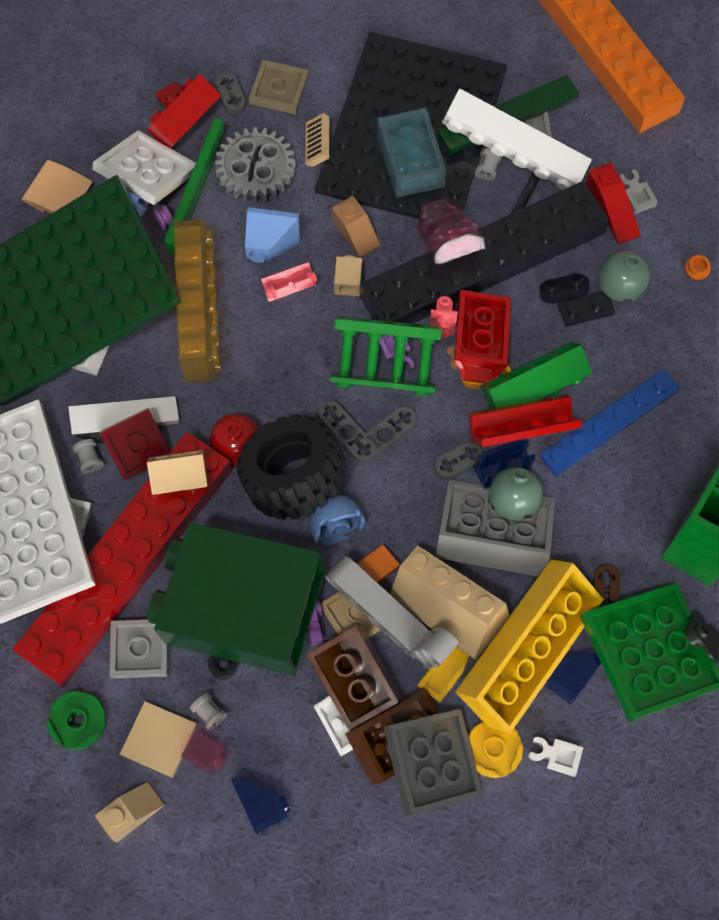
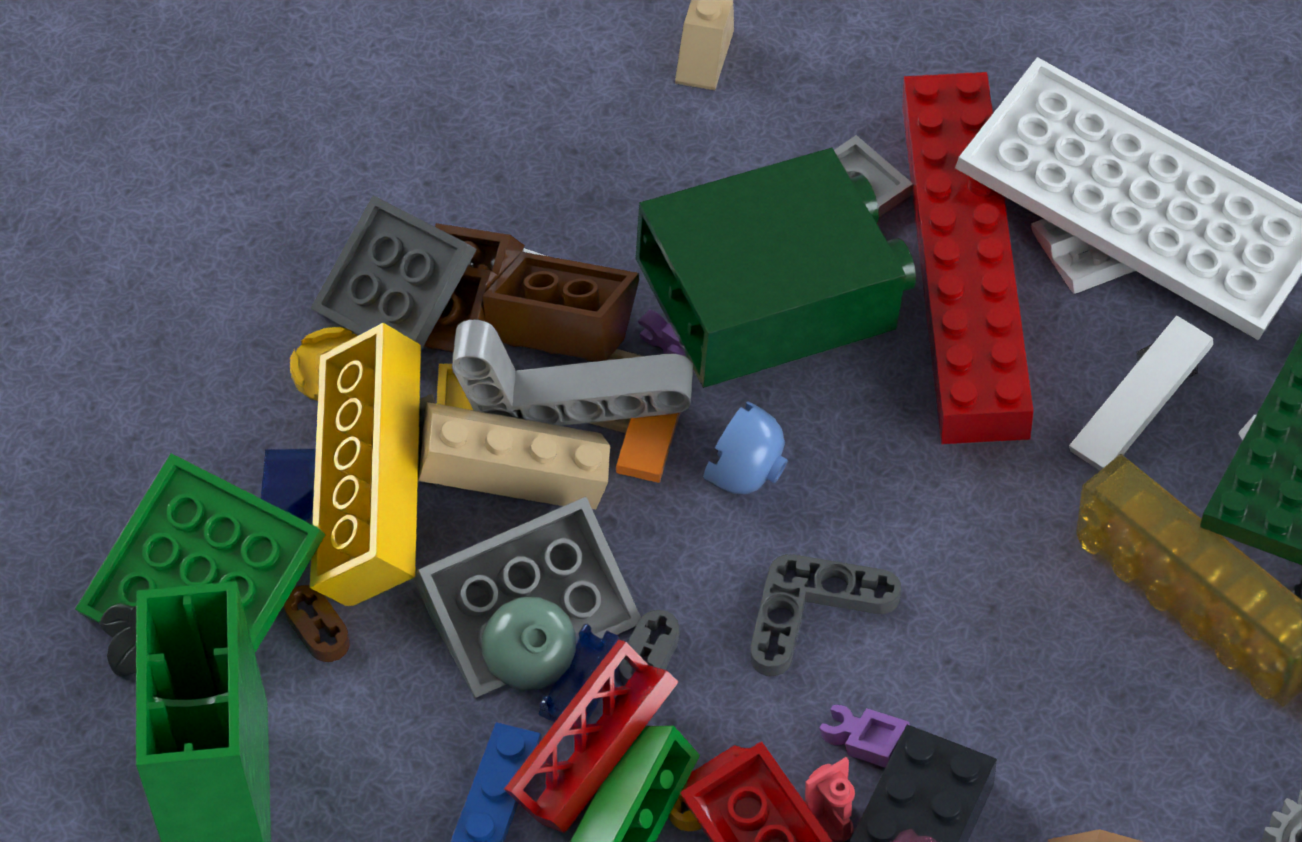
camera: 145 degrees right, 15 degrees down
(61, 716) = (845, 101): green plate -> none
(88, 456) = (1134, 326): light grey bush -> none
(133, 442) = (1088, 369): dark red plate -> none
(158, 739) = (741, 127): tan tile -> none
(177, 472) = (988, 340): tan brick -> none
(205, 753) = (672, 141): clear pink bracket -> none
(208, 711) = (697, 172): light grey bush -> none
(230, 435) = (971, 472): red cylinder -> none
(261, 805) = (566, 135): clear blue slope -> none
(270, 233) = (1204, 750): medium blue slope -> none
(288, 281) = (1098, 731): coral hinge -> none
(305, 487) = (826, 486): black tyre -> none
(348, 275) = (1033, 785): tan brick -> none
(401, 332) = (878, 713): green fence -> none
(561, 755) = (242, 402): white plate -> none

